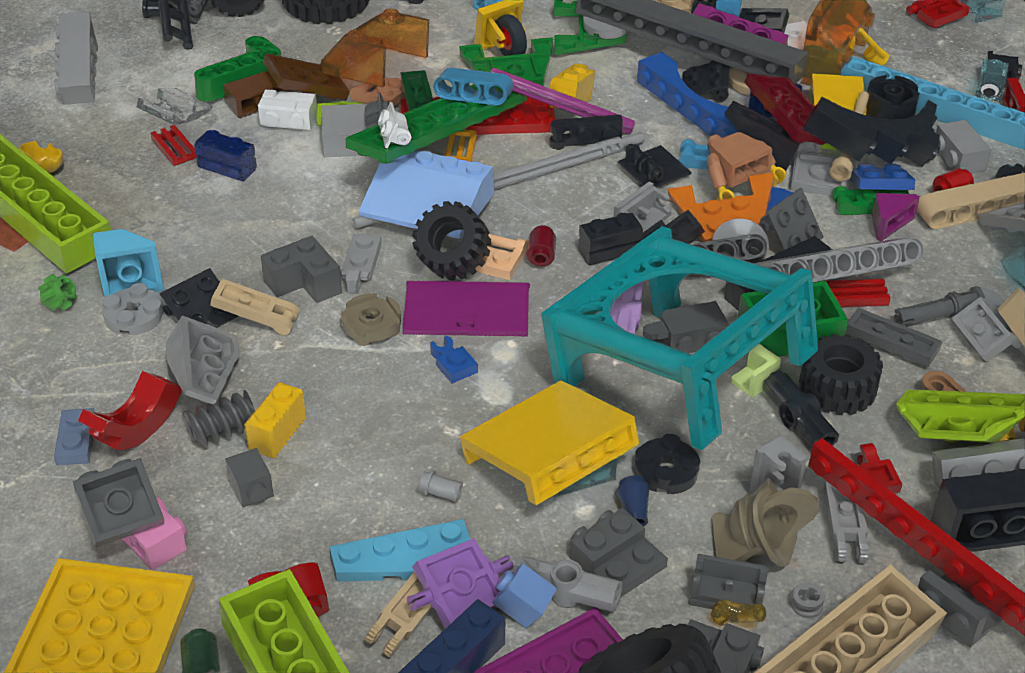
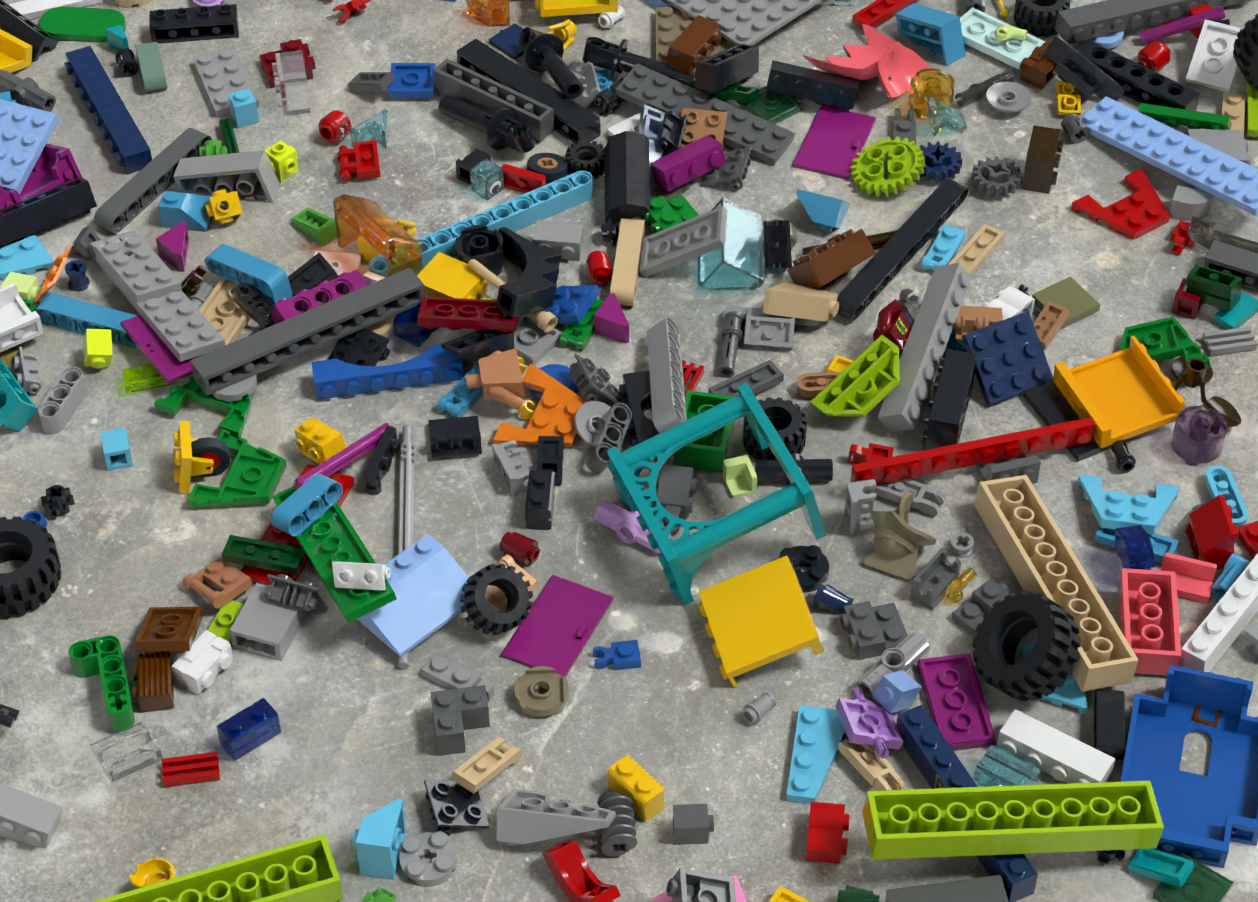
camera: 65 degrees left, 5 degrees up
(362, 51) = (159, 582): clear orange windscreen -> none

